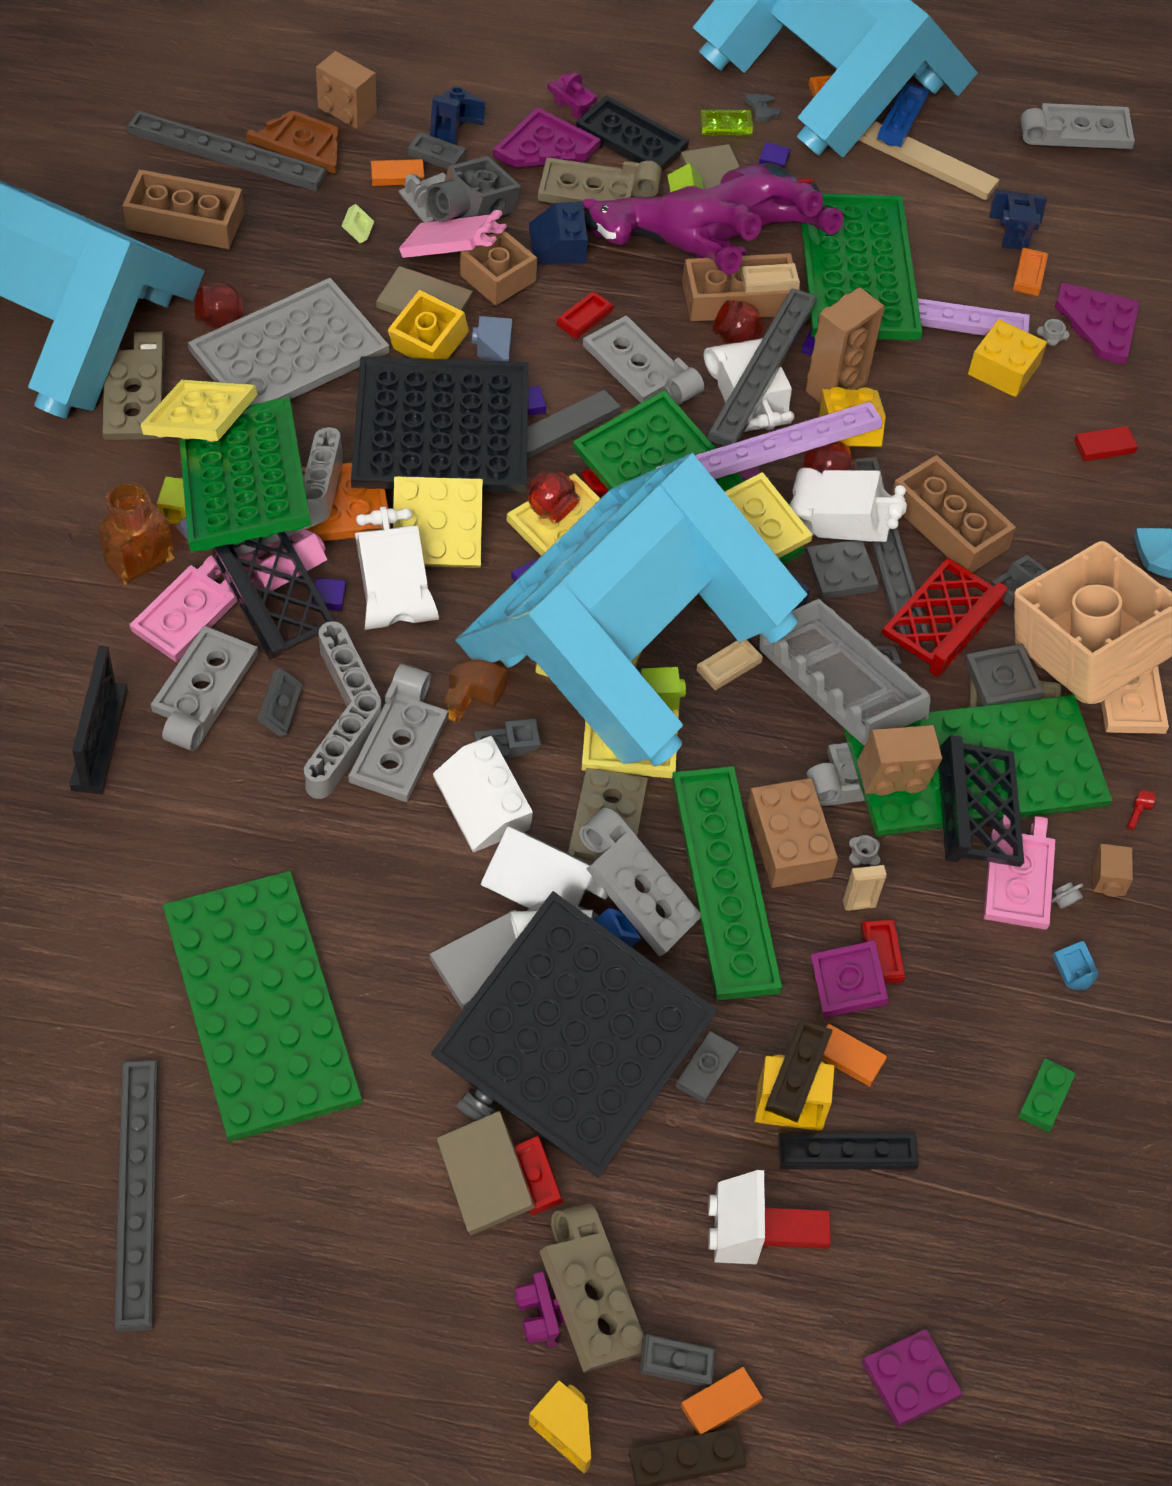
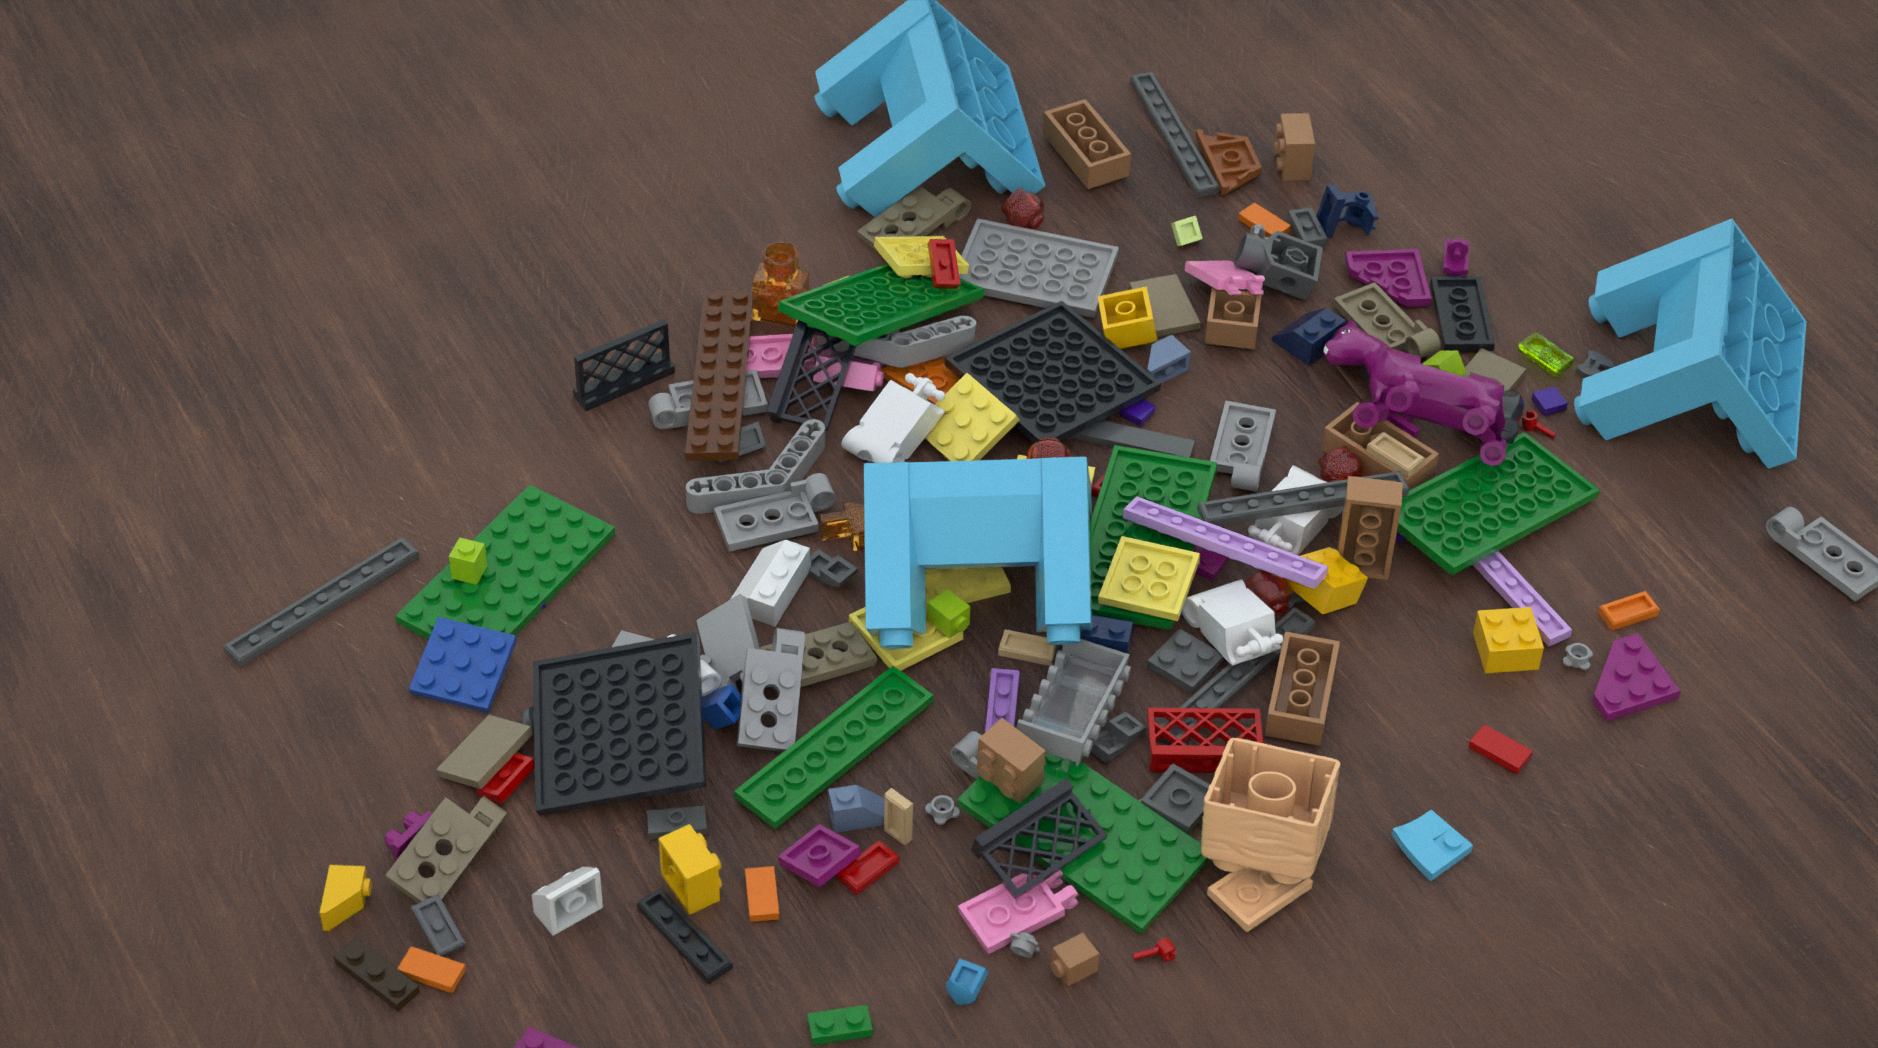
camera: 55 degrees right, 10 degrees down
(188, 657) = (720, 376): none -> reddish brown plate
(234, 1023) = (468, 561): none -> lime brick
(246, 398) = (943, 263): none -> red plate
(331, 592) = (851, 413): dark purple tile -> none
(355, 1118) = (463, 664): none -> blue plate
(584, 314) = (1256, 392): red tile -> none
(784, 725) = (1002, 696): none -> medium lavender plate
(791, 833) = (909, 755): medium nougat brick -> none
(797, 1228) = (596, 937): red tile -> none
(798, 1070) = (693, 844): dark brown tile -> none
(814, 917) = (854, 808): none -> sand blue slope
(903, 115) = (1688, 442): blue plate -> none
(935, 163) = (1668, 486): tan tile -> none
(1017, 219) = (1662, 567): dark blue tile -> none

